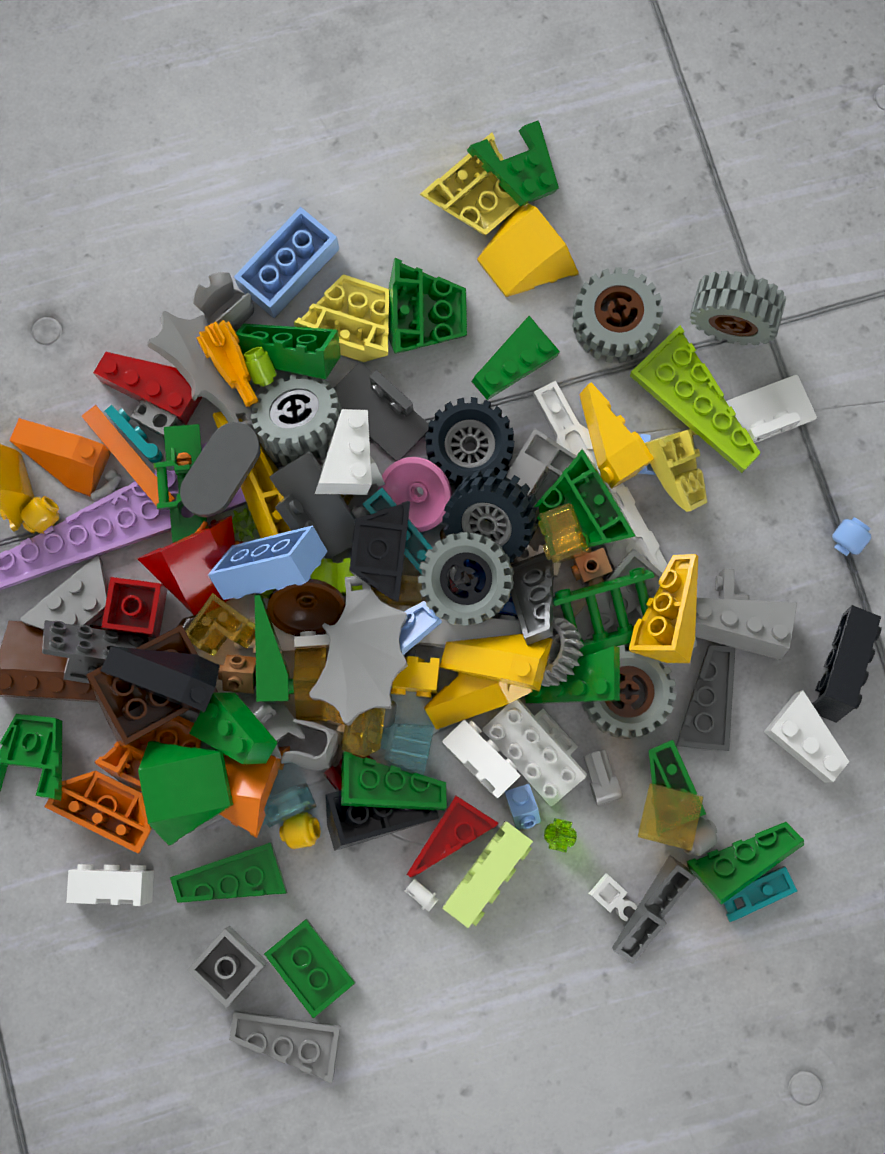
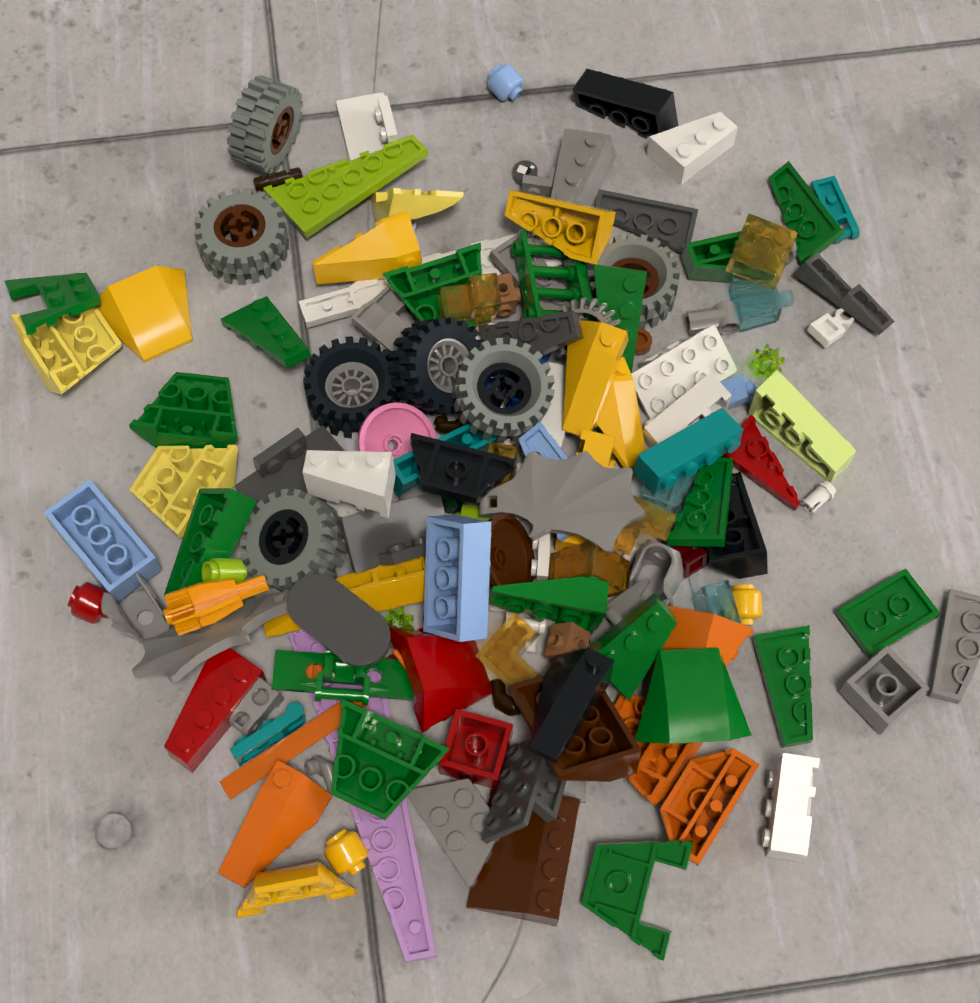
camera: 85 degrees left, 15 degrees down
(114, 528) = (379, 760): none -> green wedge
(231, 261) = (86, 602): none -> red head
(439, 763) = (688, 451): none -> teal brick
(568, 710) = (643, 343): none -> dark orange tile
(624, 820) = (756, 303): none -> clear light blue torso
(694, 336) = (276, 179): none -> dark brown axle
(746, 572) = (524, 168): none -> dark grey tile

